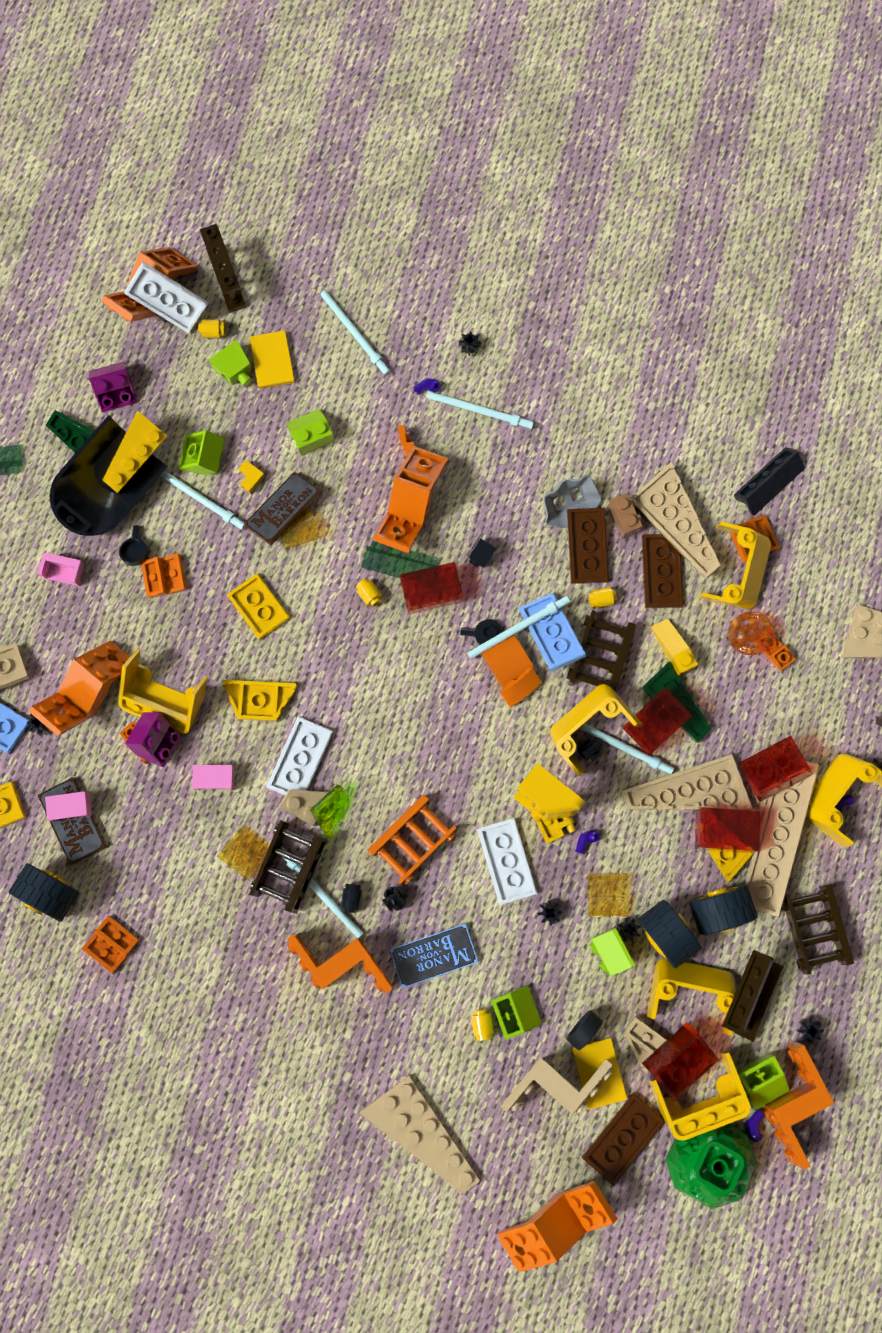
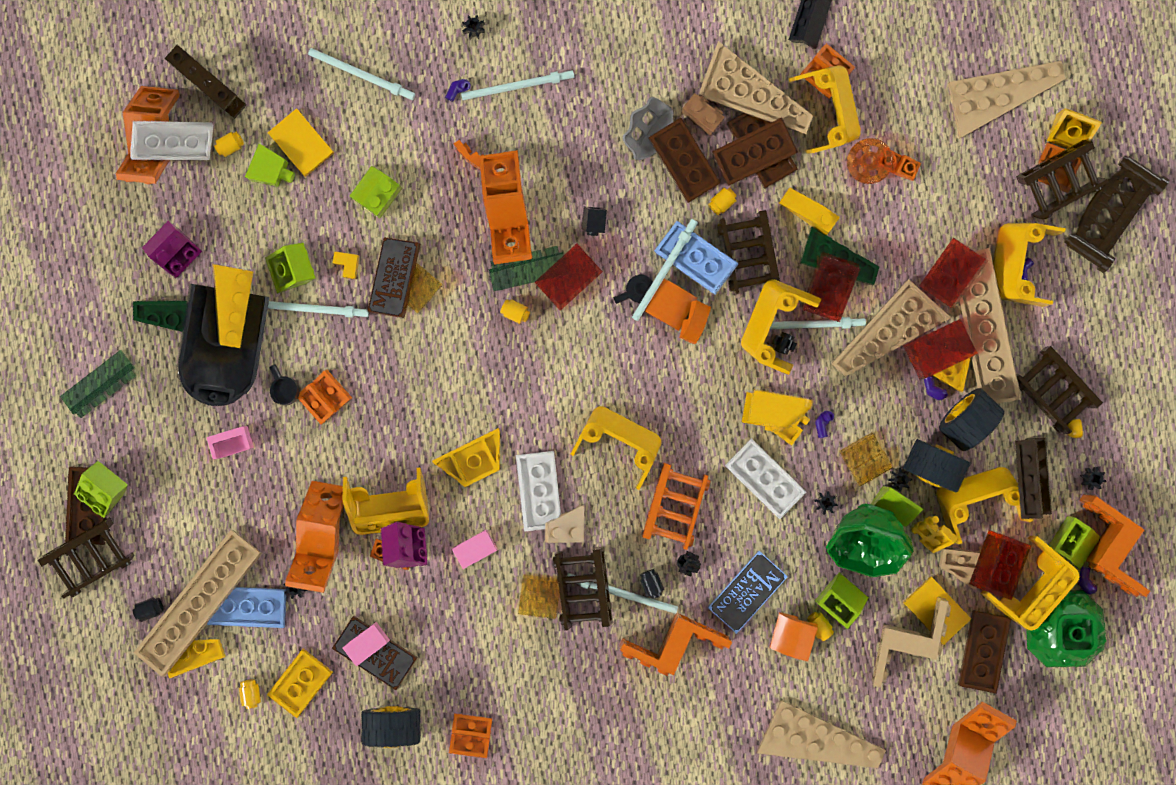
camera: 30 degrees left, 10 degrees up
(258, 606) = (424, 377): yellow tile -> none
(330, 809) = (591, 520): clear neon green wing -> none
(417, 766) = (626, 431): none -> yellow windscreen
(452, 1020) = (793, 636): none -> orange slope
(569, 970) = (870, 542): none -> green rock
(584, 1030) = (907, 584): black tyre -> none
(636, 1003) = (937, 537): none -> yellow plate
(653, 570) = (755, 151): none -> reddish brown tile
(702, 866) = (934, 391): none -> dark purple arm
(817, 974) = (1076, 428): none -> yellow piece

